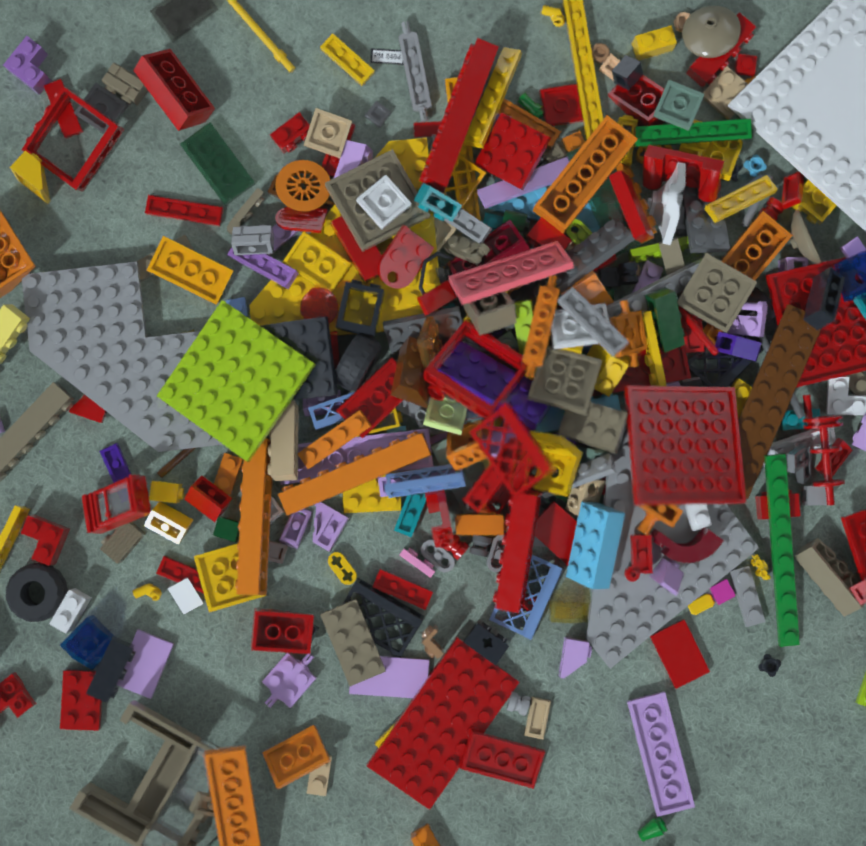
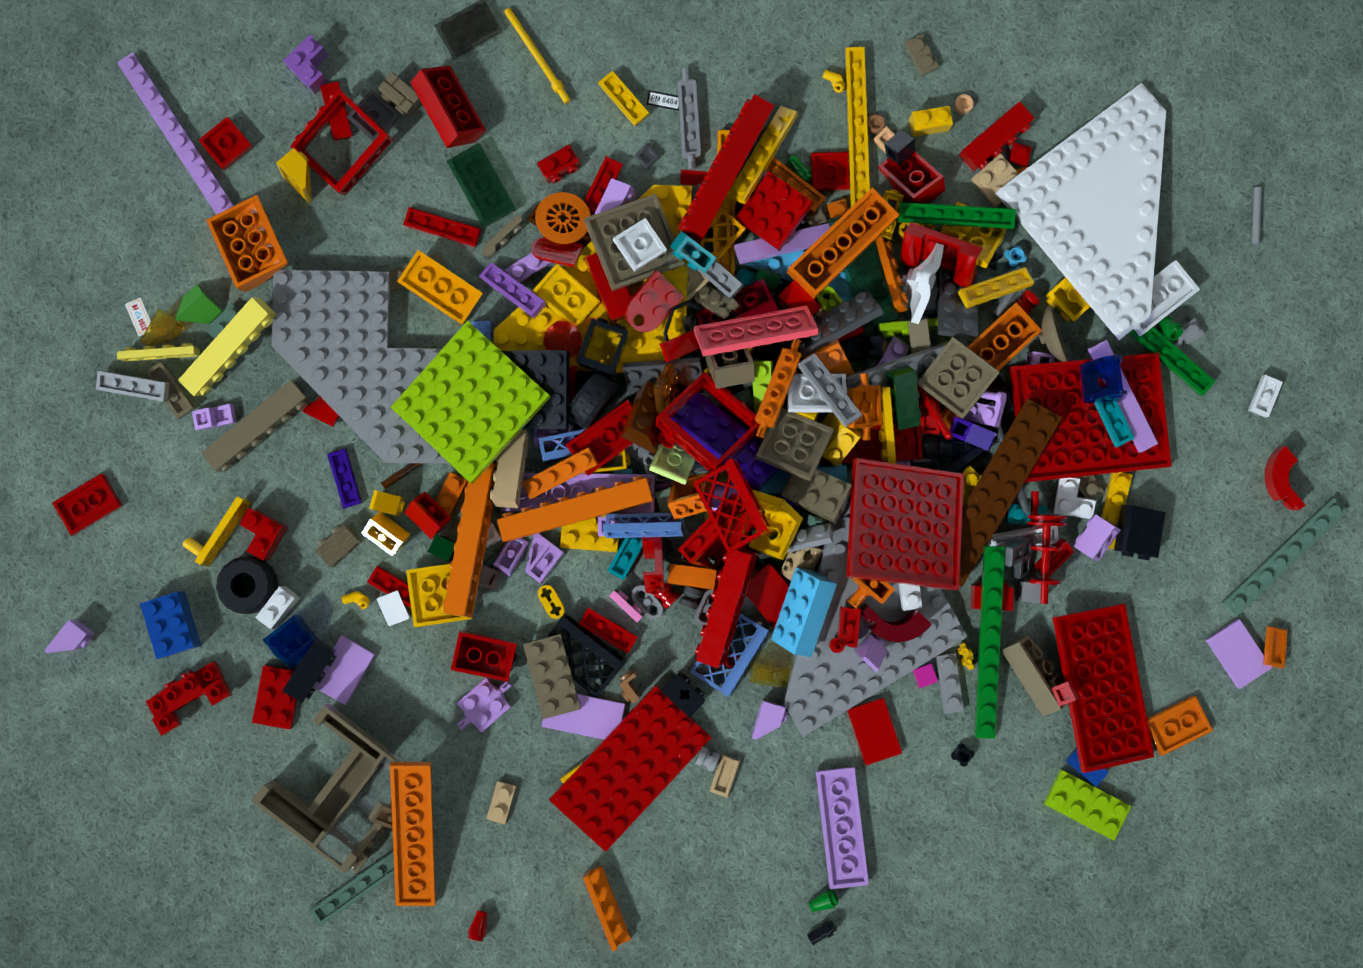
camera: 15 degrees right, 0 degrees up
(116, 504) = (336, 508): red door -> none
(253, 240) = (506, 265): light grey brick -> none
(296, 756) = (480, 781): orange plate -> none
(327, 133) = (594, 169): tan plate -> none
(502, 759) = (684, 811): red tile -> none
(631, 206) = (884, 281): red piece -> none
(678, 105) = (945, 186): sand green plate -> none
(701, 604) = (902, 685): yellow piece -> none
(714, 39) = (989, 125): dark tan dish -> none
(792, 190) = (1048, 285): red tile -> none
(824, 298) = (1063, 397): black brick -> none

